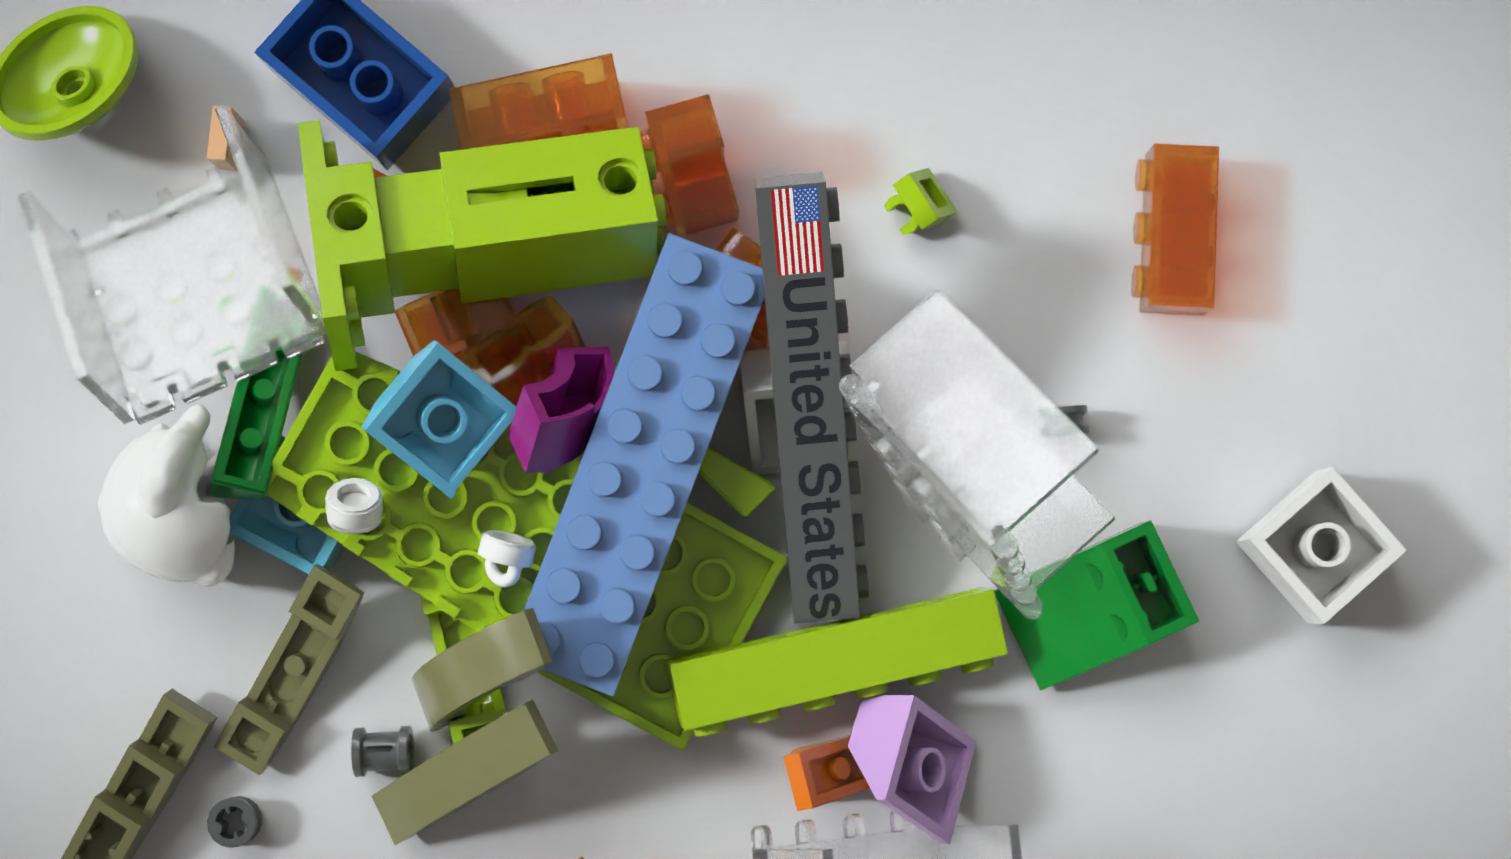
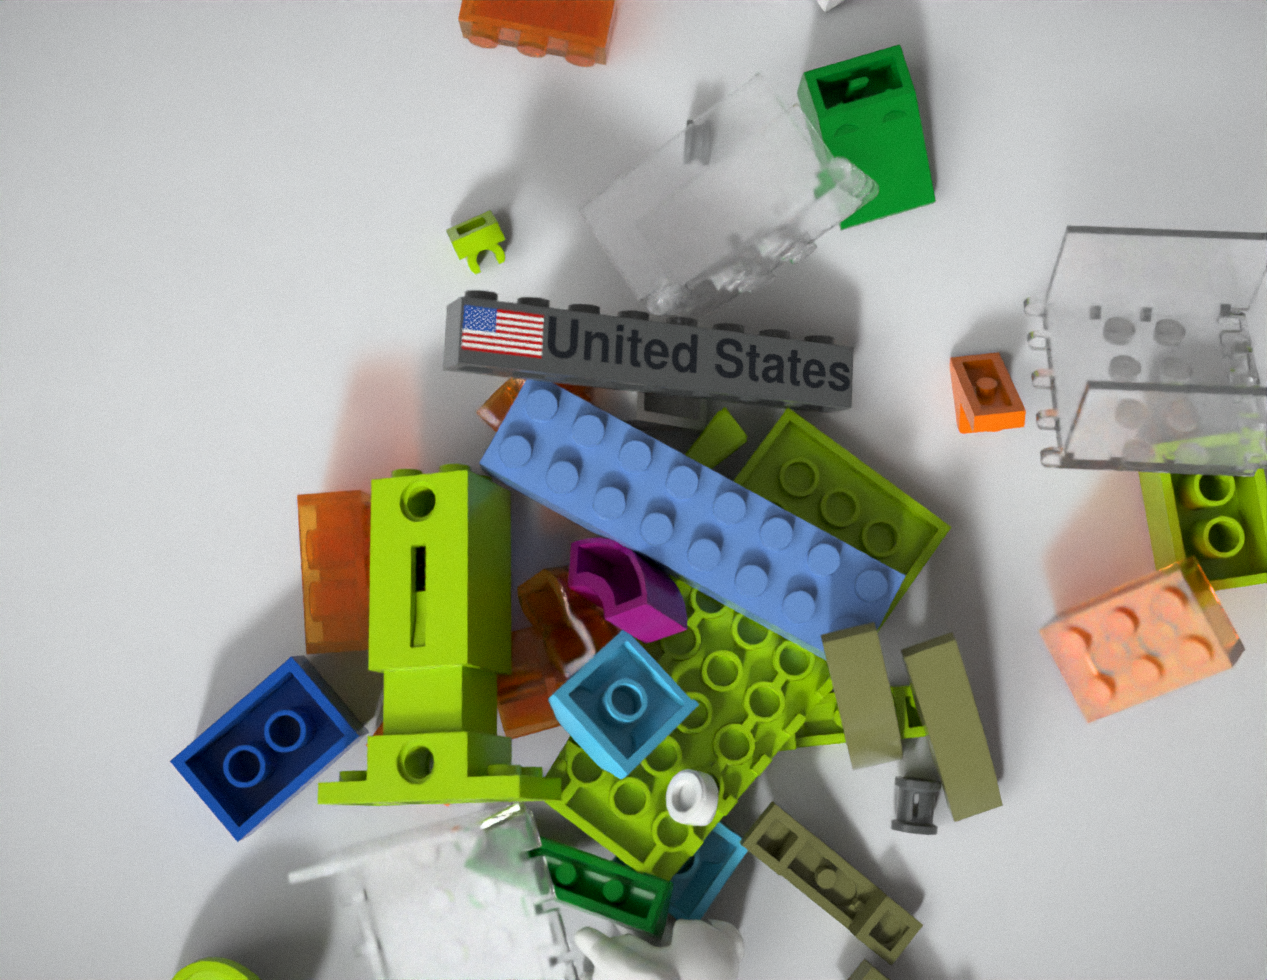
camera: 90 degrees left, 0 degrees up
(218, 149) = (324, 888): light nougat tile -> none
(218, 827) = (963, 970): dark grey bush -> none
(508, 550) = (753, 659): white tile -> none
(691, 165) = (403, 438): clear orange brick -> none
(836, 659) = (888, 376): lime brick -> none
(913, 760) = (987, 321): lavender slope -> none

